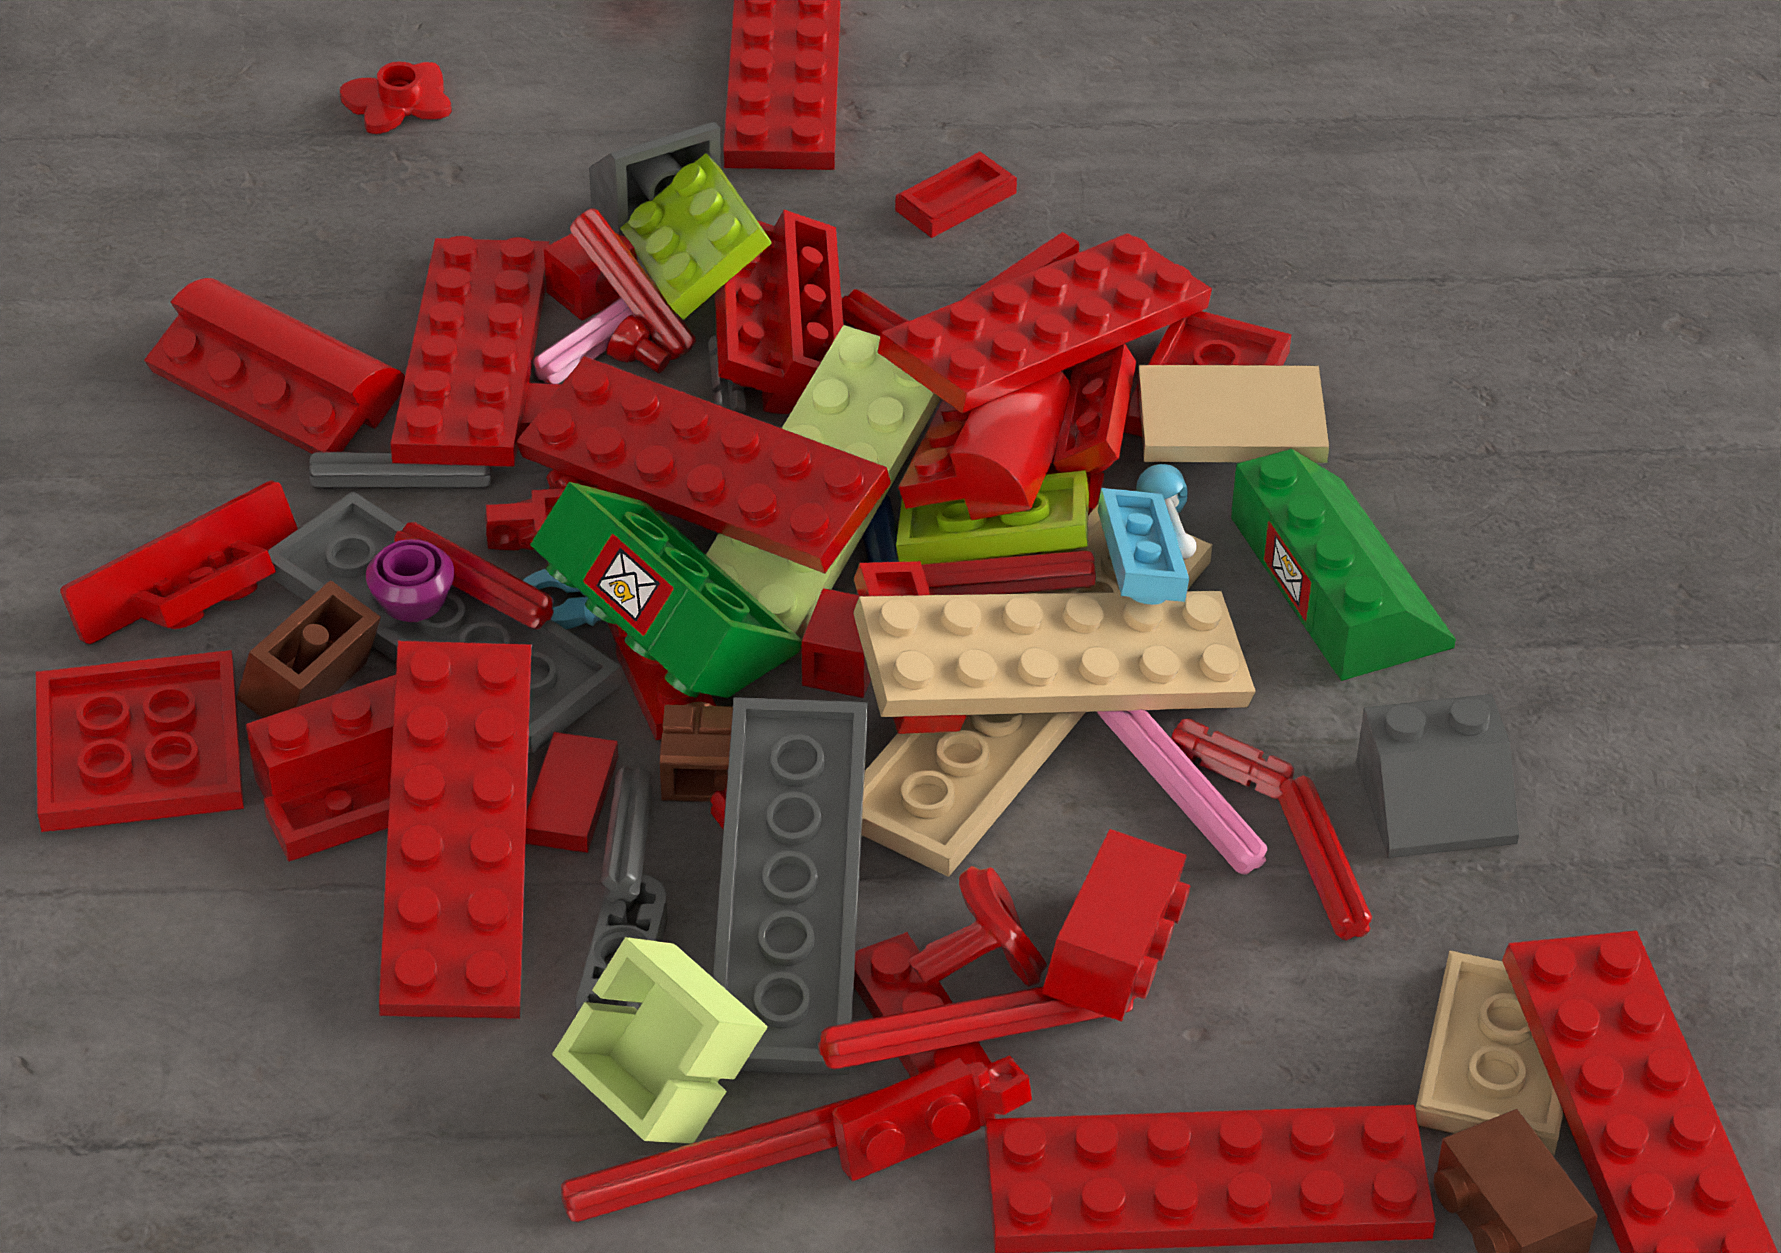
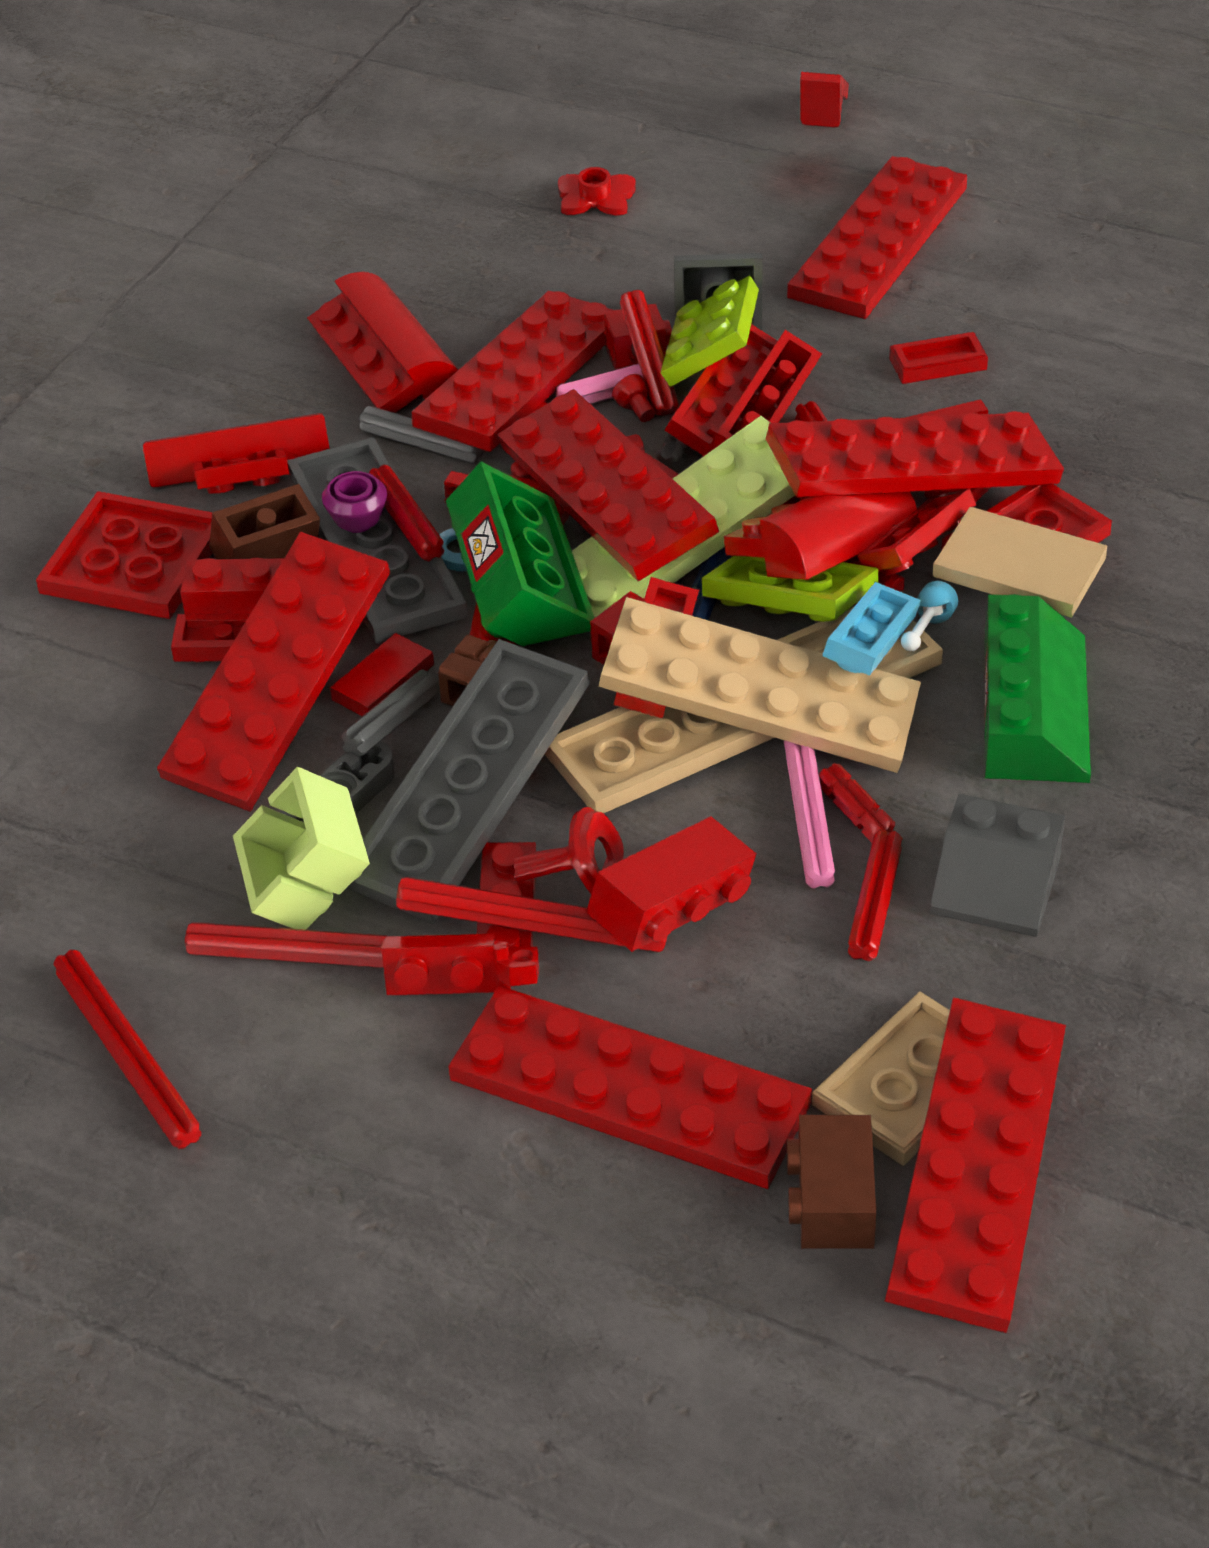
camera: 30 degrees right, 0 degrees up
(1012, 574) = (767, 621): red axle -> none

